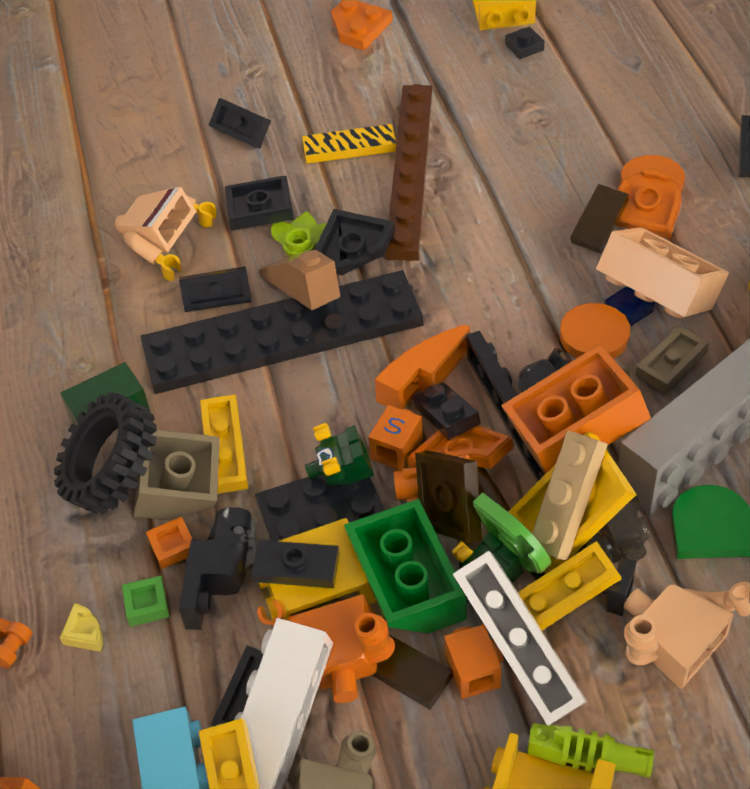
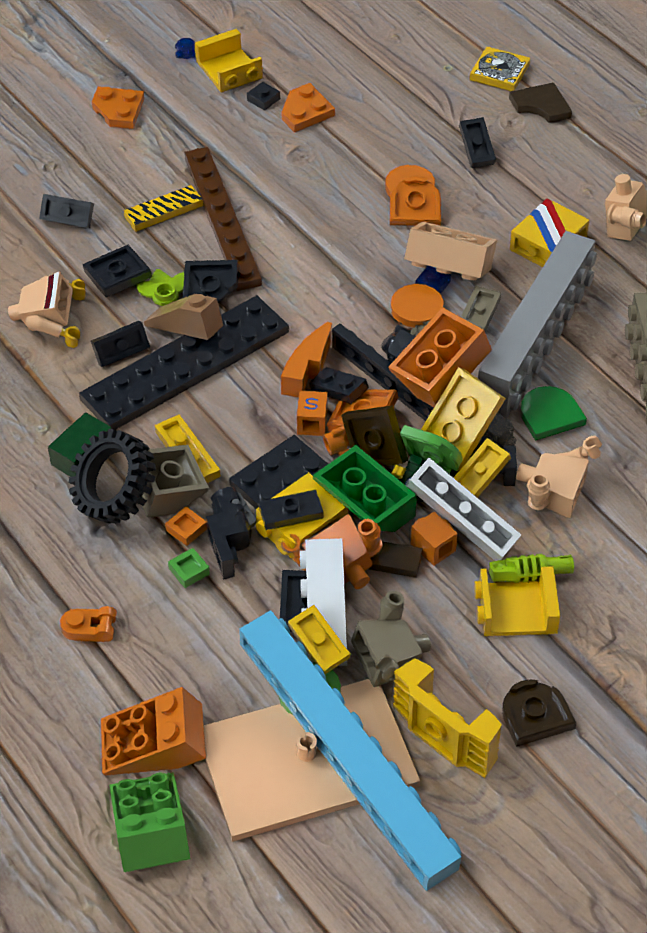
camera: 25 degrees left, 0 degrees up
(82, 630) = (151, 600): light yellow tile -> none
(340, 457) = (284, 434): dark green piece -> none
(567, 65) = (305, 108): none -> orange plate
(568, 493) = (459, 409): tan plate -> none
(599, 218) = (386, 222): dark brown tile -> none

